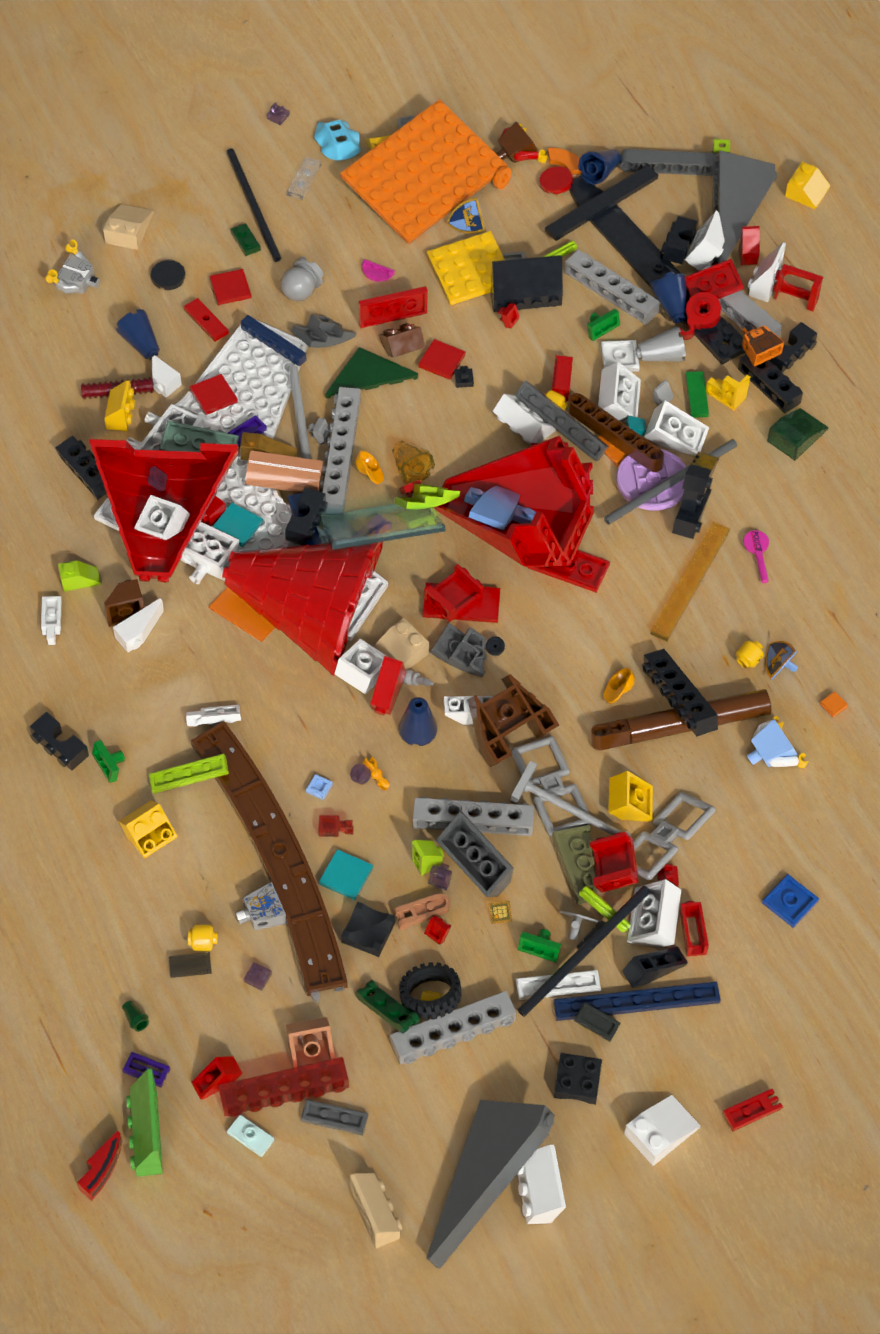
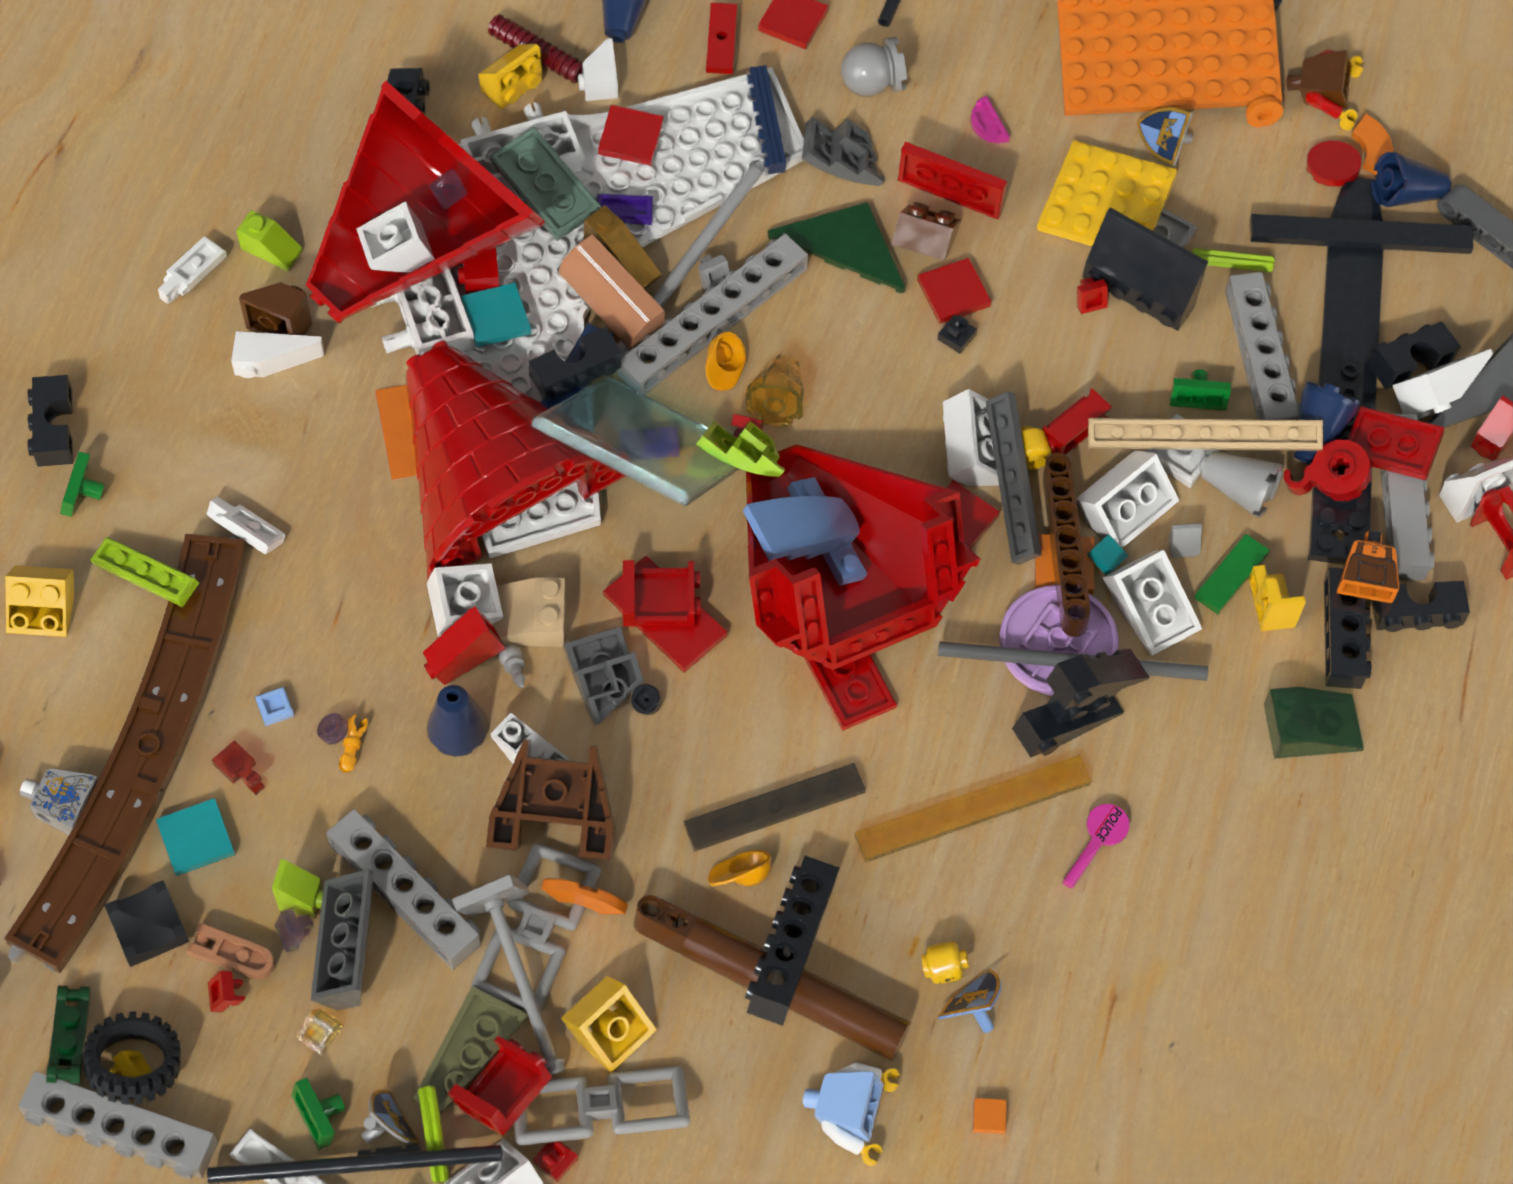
camera: 40 degrees right, 5 degrees up
(562, 751) = (586, 896): none -> orange tile
(602, 649) = (774, 807): none -> clear smoke tile
(629, 338) = (1205, 434): none -> tan tile

